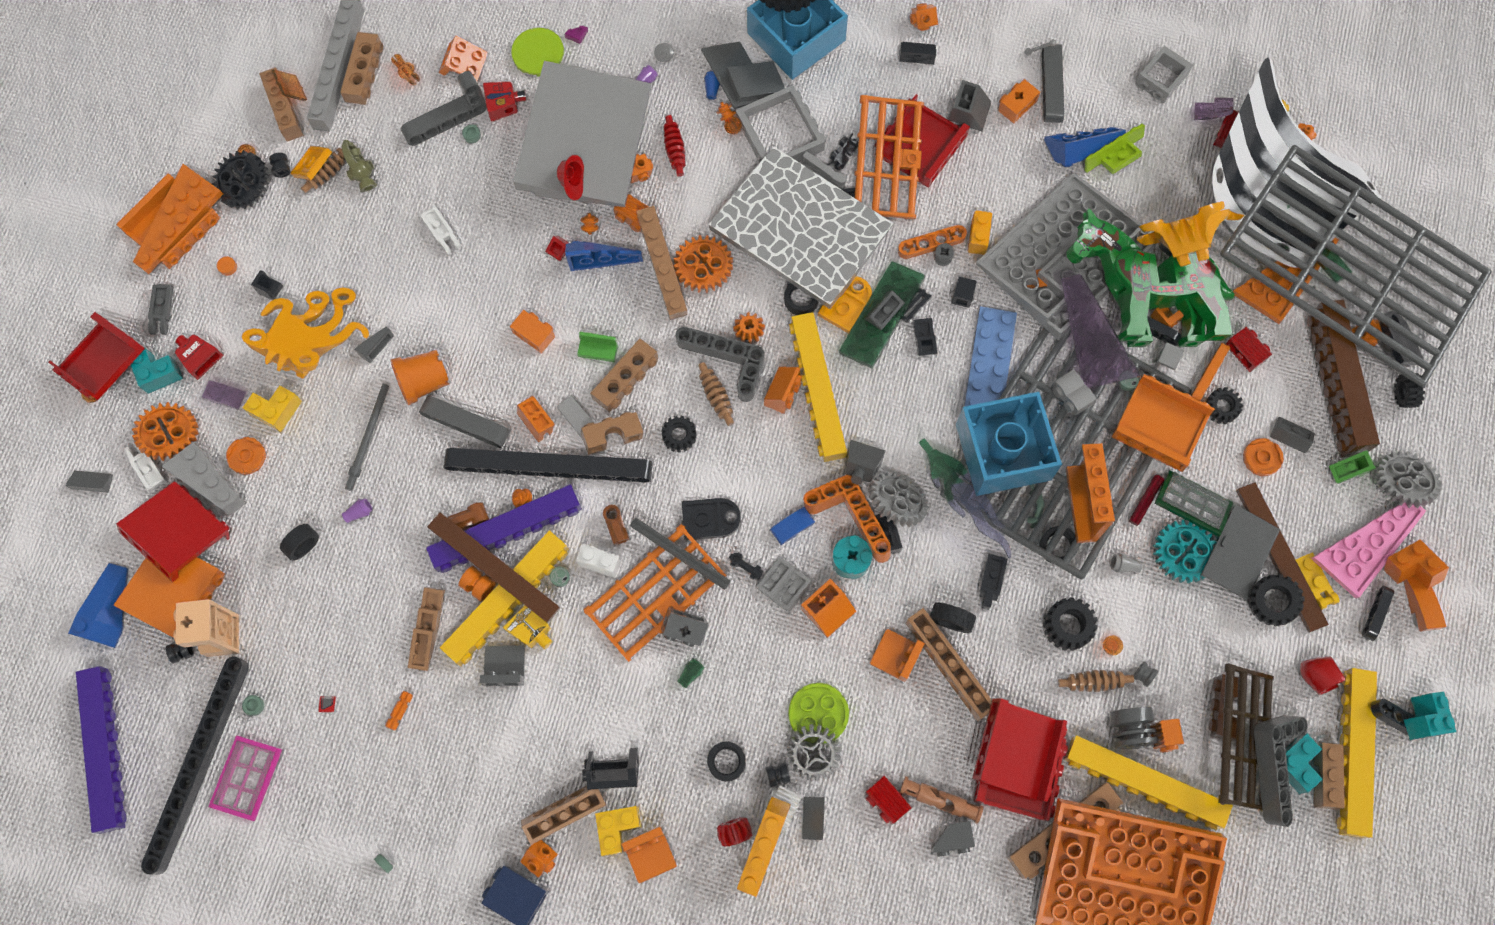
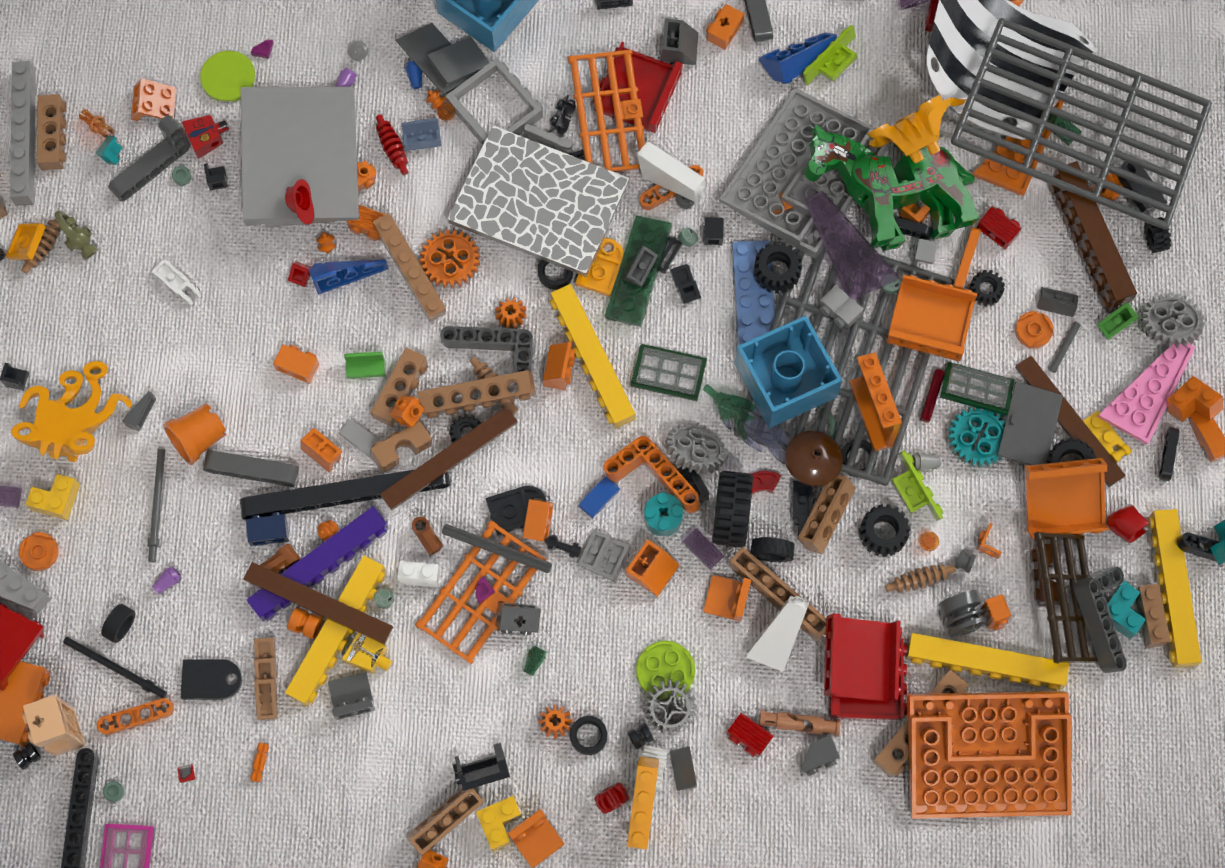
camera: 15 degrees left, 0 degrees up
(293, 633) = (136, 720): none -> orange beam
(311, 608) = (147, 685): none -> black bar
(371, 617) = (208, 679): none -> black tile
(411, 96) = (109, 150): none -> teal panel
(464, 484) = (267, 529): none -> dark blue brick
(502, 141) = (216, 177): none -> black panel
(625, 399) = (407, 411): none -> orange brick
(650, 391) = (429, 397): none -> medium nougat brick
(654, 454) = (448, 458): none -> reddish brown tile
(657, 591) = (483, 590): none -> magenta tile
(696, 731) = (549, 725): none -> orange gear
(704, 141) = (421, 134): none -> sand blue bracket
(727, 534) = (538, 520): none -> orange hinge
(863, 461) = (653, 420): dark grey torso -> none
(883, 600) = (703, 549): none -> clear purple slope
(889, 419) = (669, 372): none -> clear piece
(922, 568) = (732, 509): none -> black tyre
(934, 226) = (670, 173): none -> white slope
(937, 292) = (688, 237): none -> sand green tile
(939, 708) = (778, 637): none -> white slope
(950, 546) = (765, 481): none -> red tile
(979, 232) = (716, 168): light orange brick -> none
(1007, 543) = (808, 467): none -> reddish brown dish
(1015, 593) = (826, 514): none -> medium nougat brick
(1023, 326) = (780, 253): none -> black tyre
(1108, 590) = (913, 490): none -> lime bracket
(1168, 654) = (984, 548): none -> orange bracket
(1264, 634) = (1066, 497): none -> orange panel
(1290, 481) = (1064, 347): none -> dark grey bar

